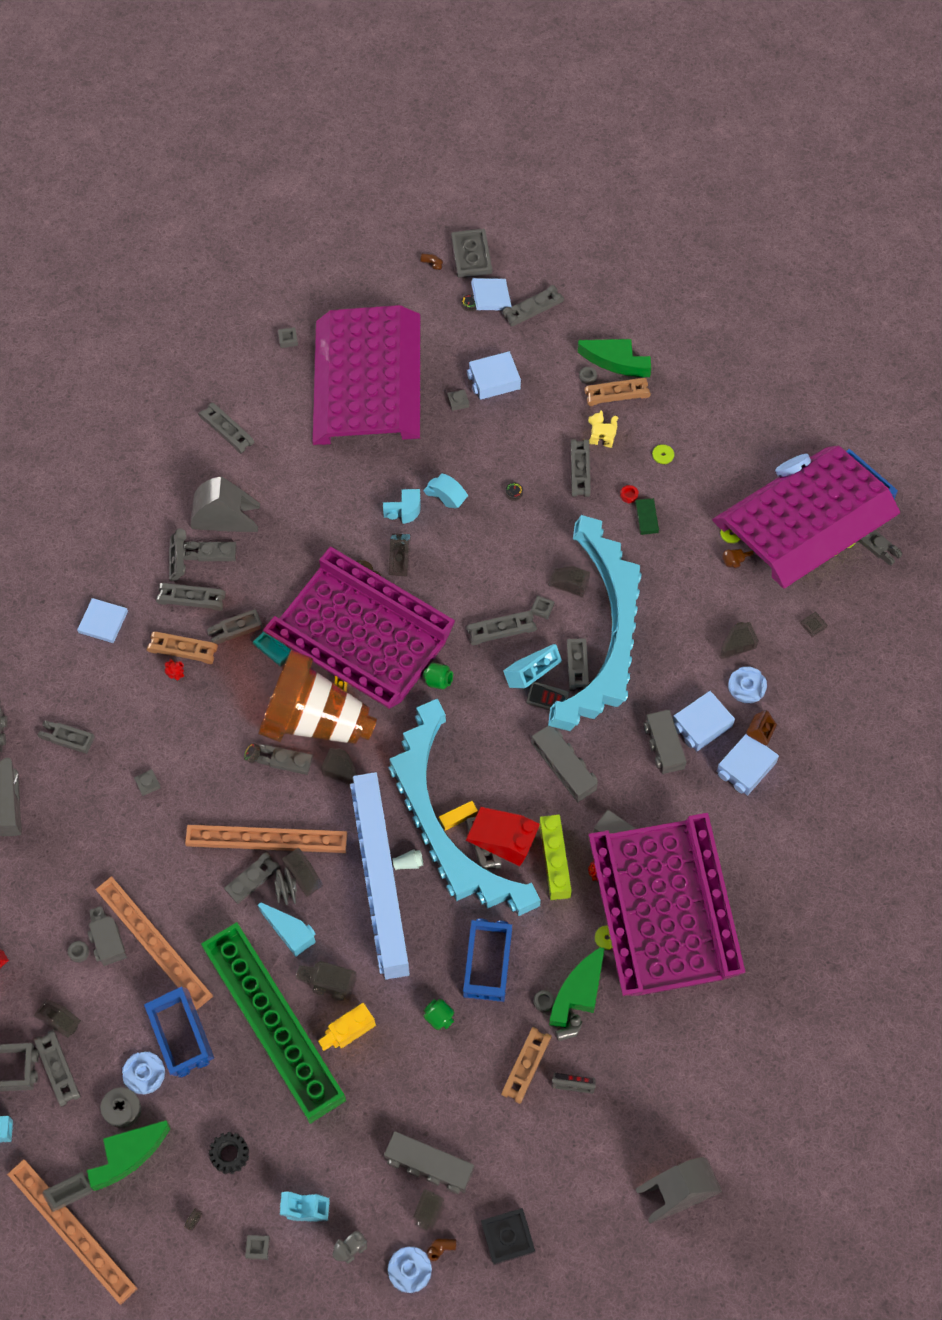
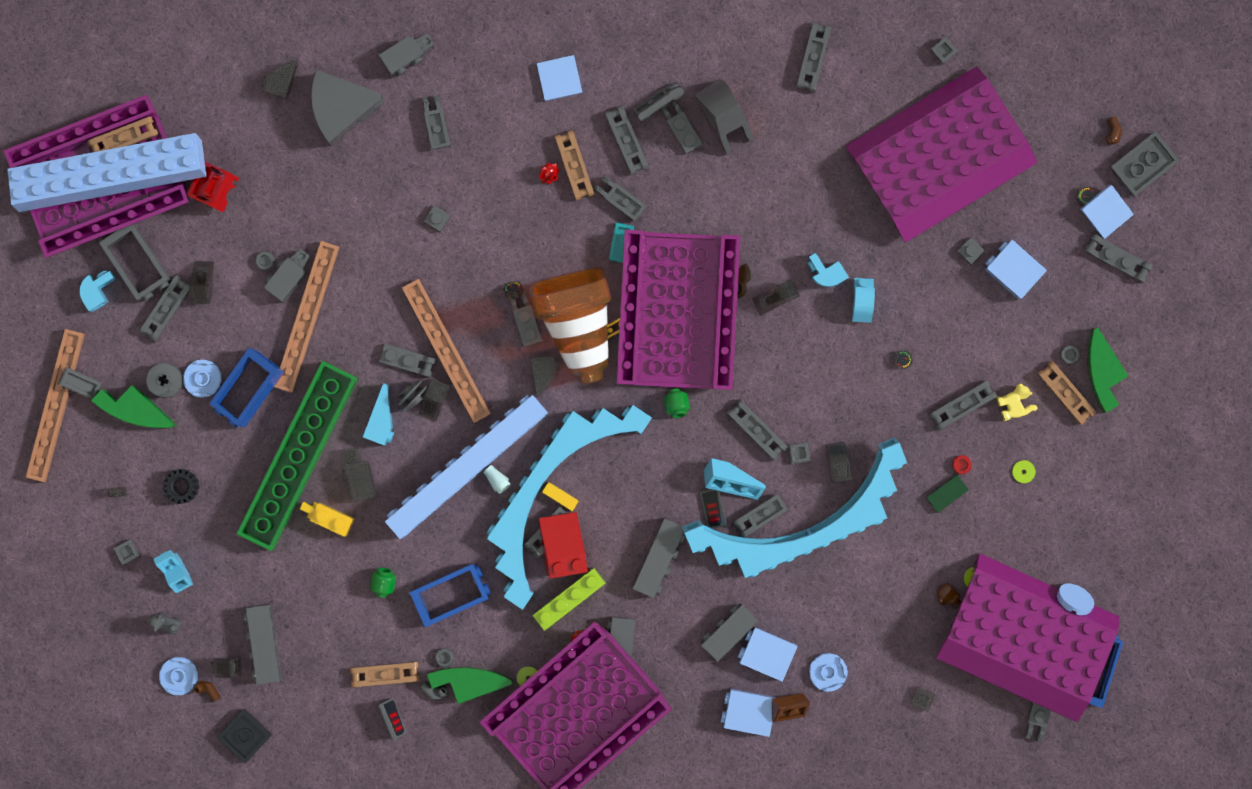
camera: 60 degrees right, 25 degrees up
(740, 640) = (866, 643): clear smoke slope -> none

